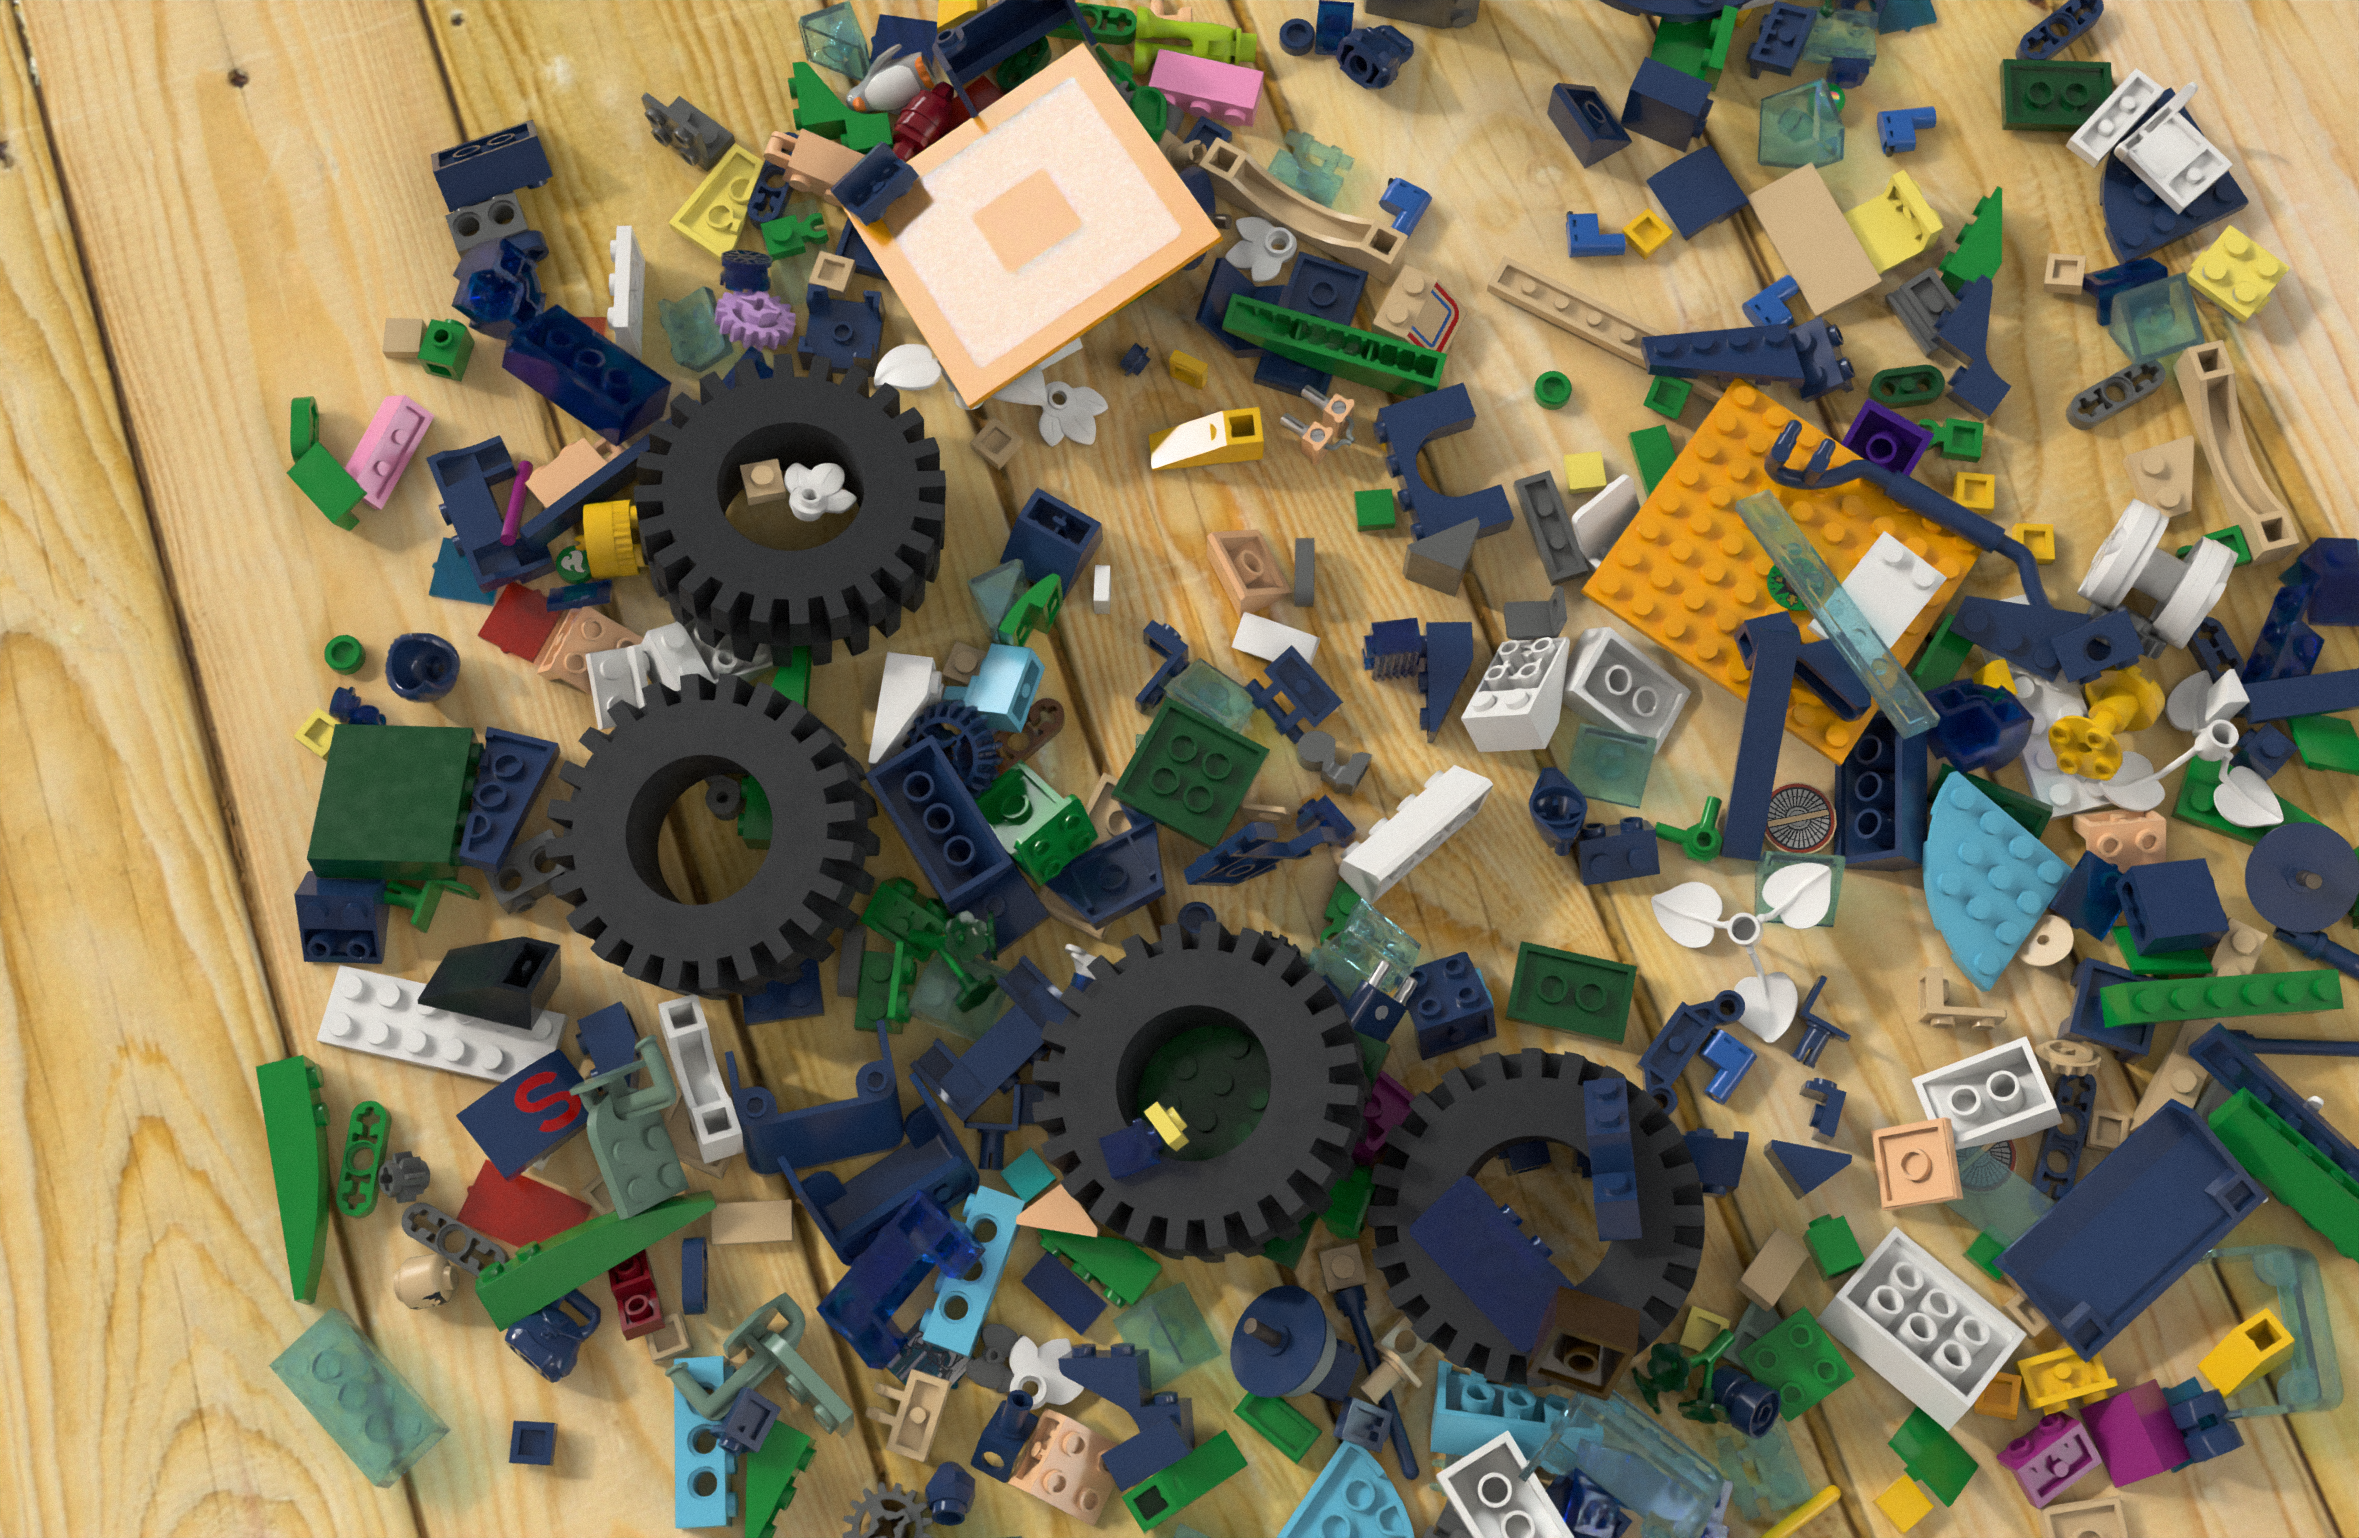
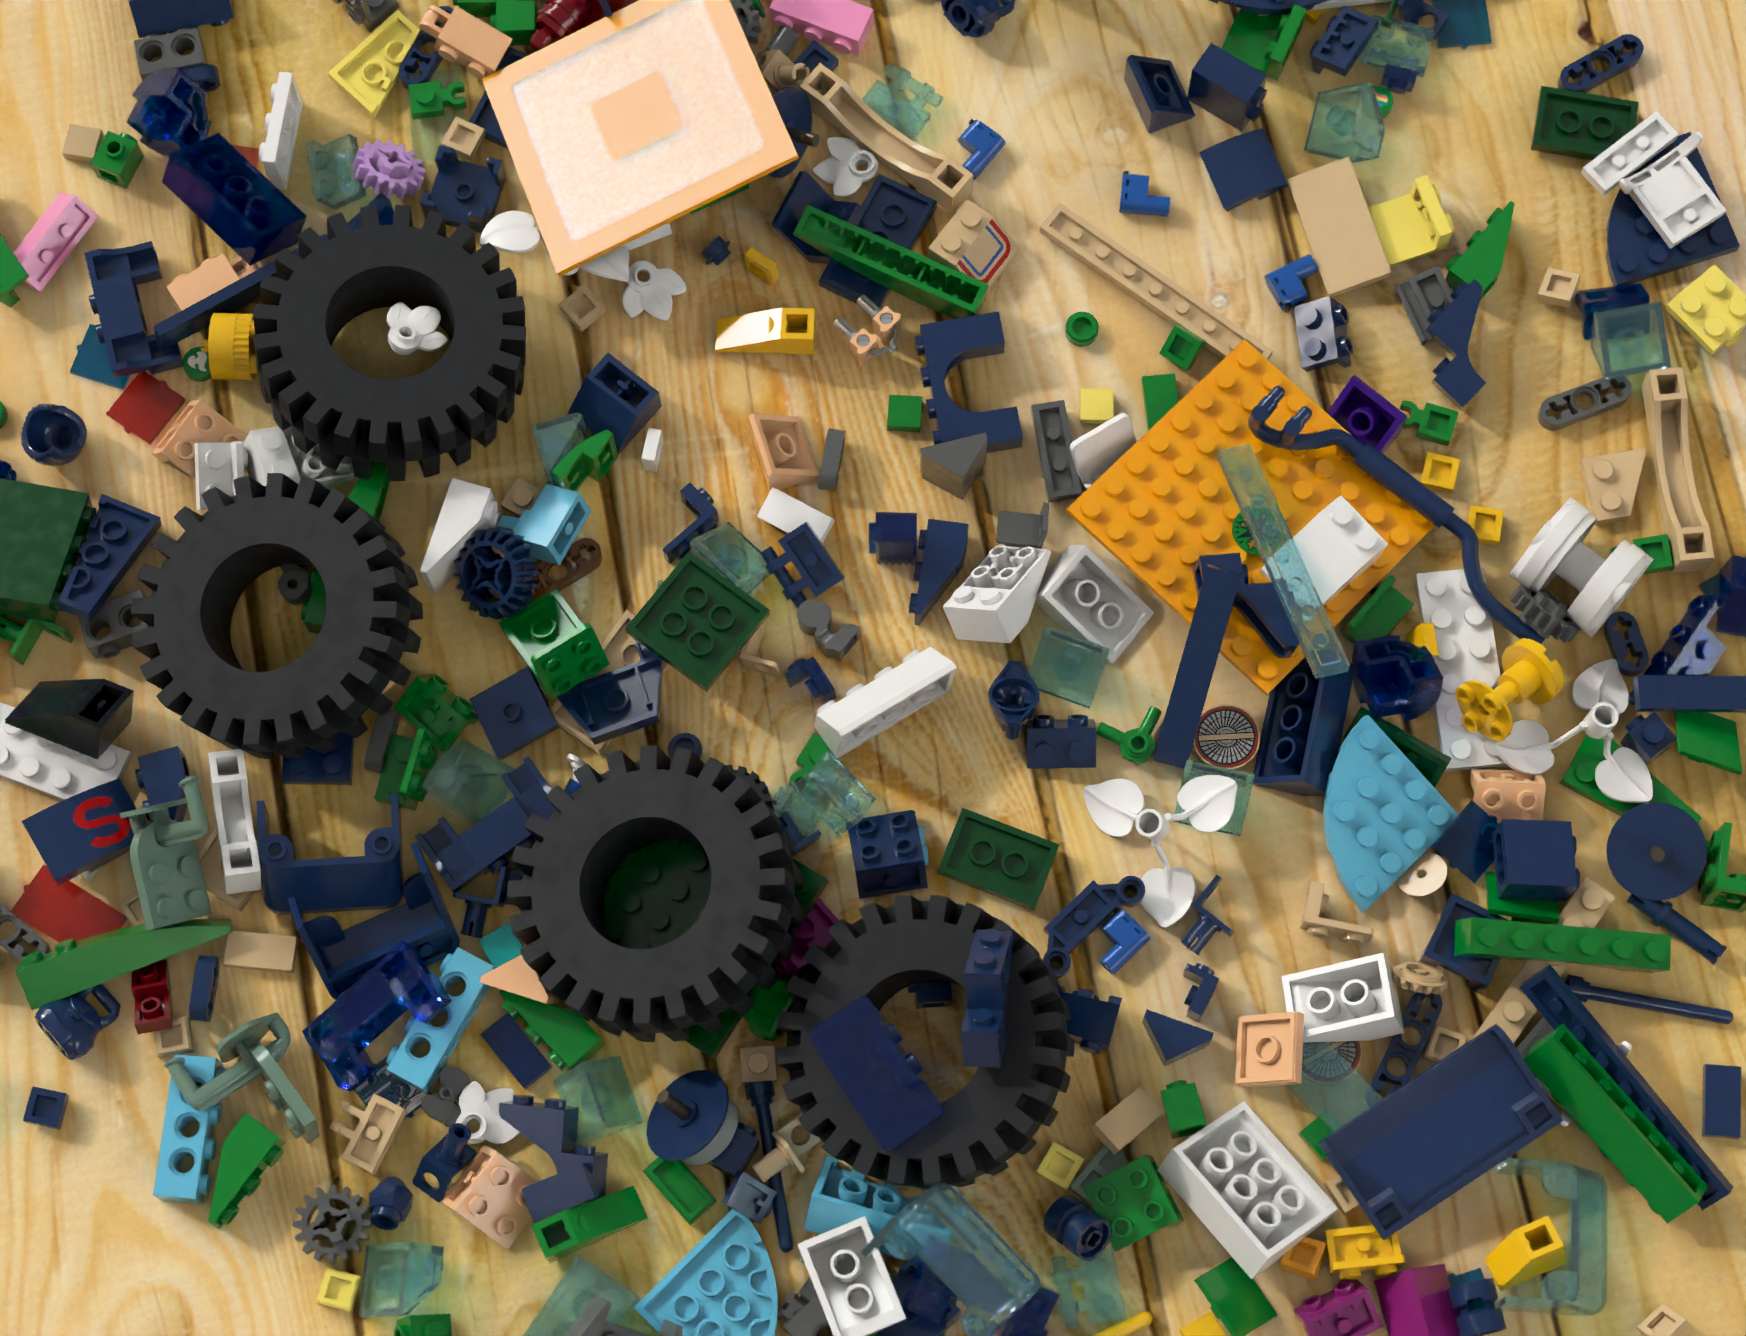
camera: 10 degrees right, 0 degrees up
(516, 504) = (156, 303): magenta bar -> none
(579, 595) = (198, 391): clear blue piece -> none
(745, 270) = (387, 125): clear blue wheel -> none
(746, 1423) = (225, 1116): dark blue bracket -> none
(763, 482) = (368, 315): tan plate -> none
(874, 184) = (511, 64): dark blue bracket -> none
(939, 823) = (473, 633): dark blue slope -> none
(966, 939) = (477, 734): dark green plant -> none
(1131, 1149) = (583, 930): clear blue bracket -> none
(1150, 109) = (764, 32): green tile -> none
(1168, 1124) = (616, 914): light yellow plate -> none
(1254, 854) = (737, 698): dark blue wing -> none
(1375, 1011) = (821, 848): dark blue piece -> none
(1584, 1343) = (936, 1149): dark brown slope -> none
(1647, 233) = (1192, 200): yellow tile -> none
(1671, 1372) = (1019, 1188): dark green plant -> none
(1746, 352) = (1236, 318): dark blue wing -> none
(1898, 127) = (1435, 136): blue piece -> none
(1904, 388) = (1395, 368): dark green plate -> none
(2015, 631) = (1450, 602): dark blue wing -> none
(2115, 628) = (1489, 629): dark blue brick -> none
(2225, 698) = (1621, 685): white slope -> none

